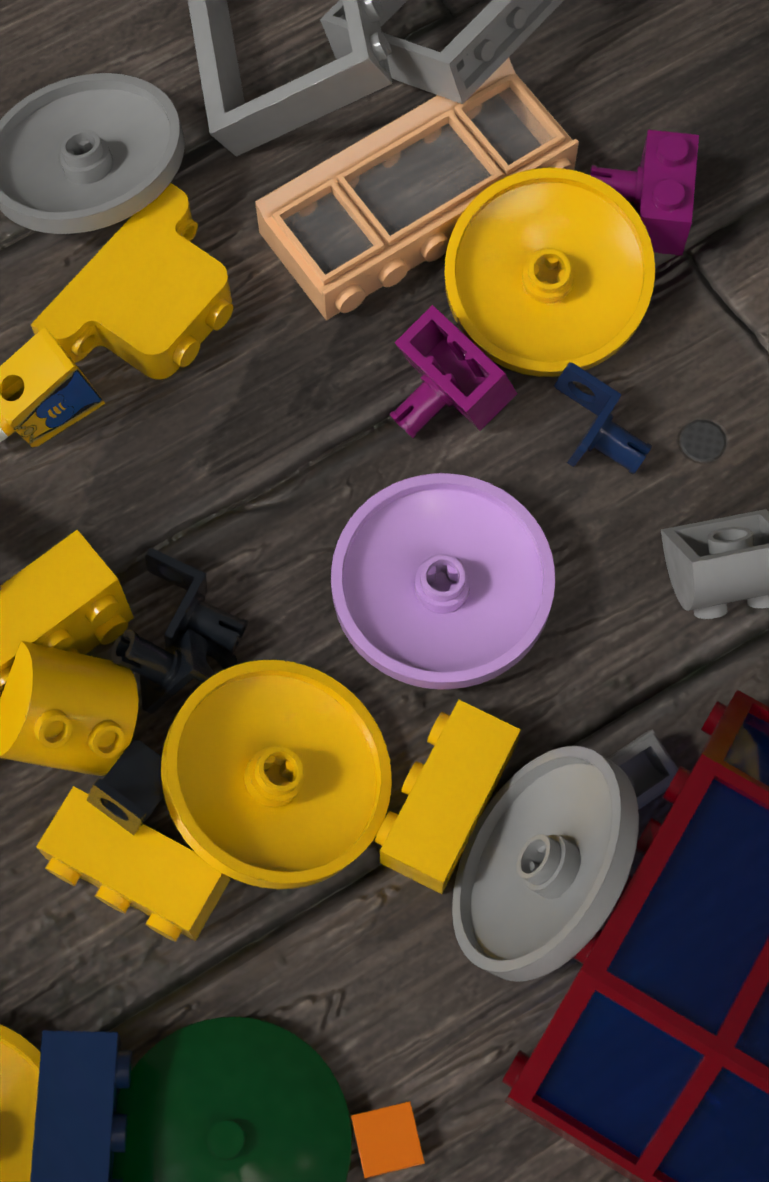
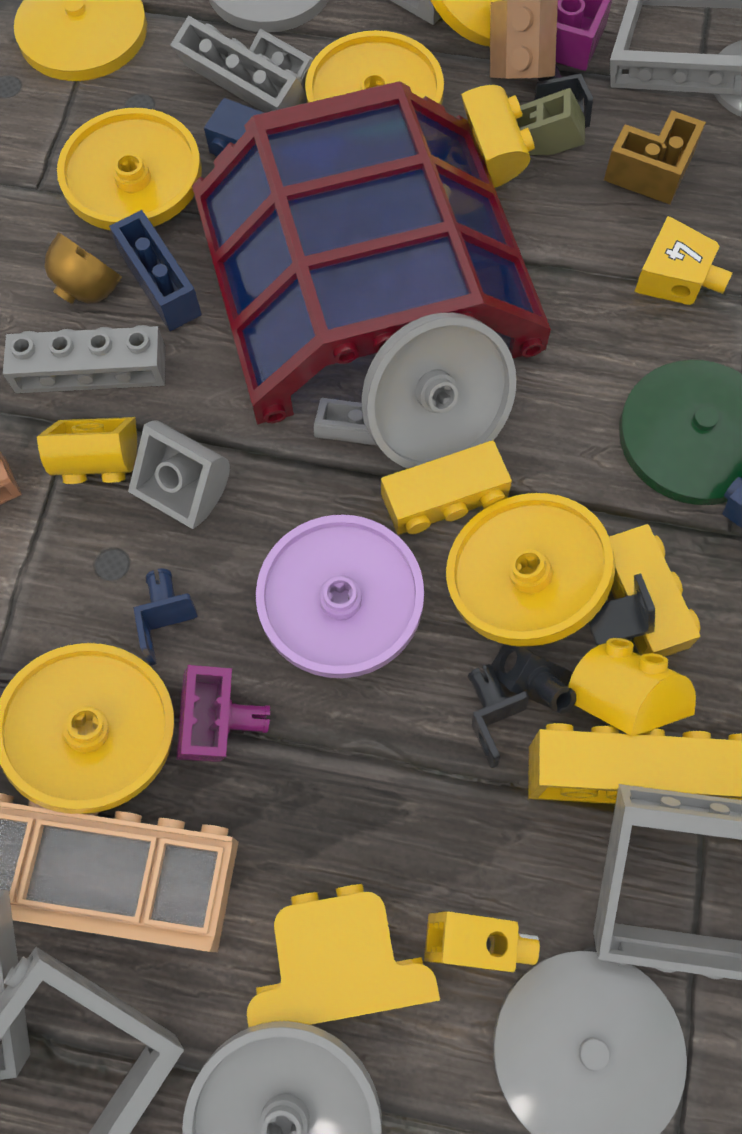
camera: 135 degrees left, 0 degrees up
(387, 1140) = (618, 372): orange tile -> none

